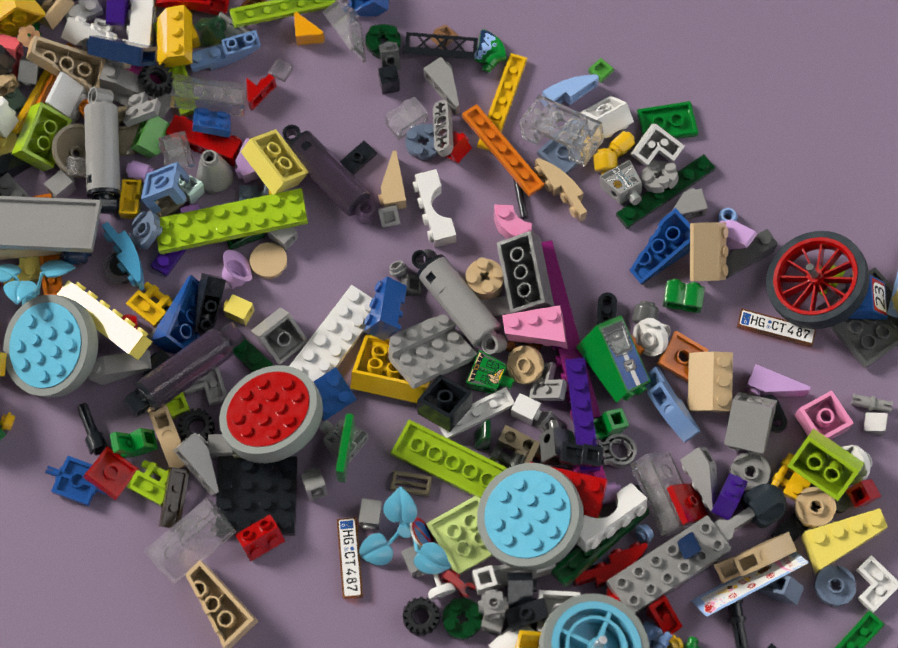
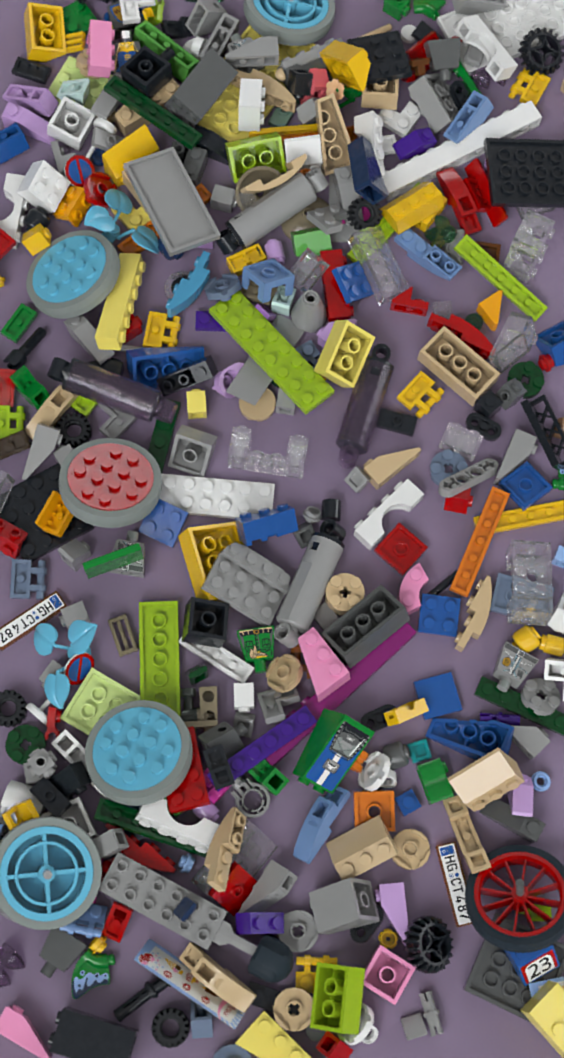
camera: 55 degrees right, 5 degrees up
(61, 422) = (19, 323): none -> green plate
(77, 110) = (292, 167): none -> tan slope
(247, 251) = (252, 379): none -> light grey sticker
(270, 480) = (54, 516): none -> light orange bracket
(307, 52) = (475, 320): none -> clear green tile
(309, 544) = (21, 579): none -> sand blue plate
(317, 61) = (464, 331): none -> red slope
(339, 128) = (416, 390): none -> yellow plate
(340, 82) = (458, 366): none -> tan brick
(343, 259) = (242, 458): none -> clear plate
(378, 16) = (545, 362): none -> red plate
(402, 93) = (484, 425): none -> black plate
(402, 252) = (331, 509): none -> black brick
(470, 215) = (400, 549): none -> red plate
(475, 90) = (525, 485): none -> blue tile
(546, 217) = (439, 615): none -> blue plate
(595, 581) = (111, 843): none -> light grey brick
(612, 256) = (439, 695): none -> blue tile
(615, 285) = (406, 712): none -> yellow piece
(649, 487) = (223, 845): none -> tan slope
(651, 294) = (419, 751): none -> teal tile
(665, 210) = (512, 720): none -> dark purple pin
(689, 327) = (407, 802): none -> blue plate
(730, 341) = (412, 848): none -> tan tile
(742, 296) = (466, 835): none -> tan slope
(768, 628) = (157, 1031): none -> black tyre
(793, 399) = (393, 938): none -> yellow plate
(816, 372) = (428, 939): none -> black gear

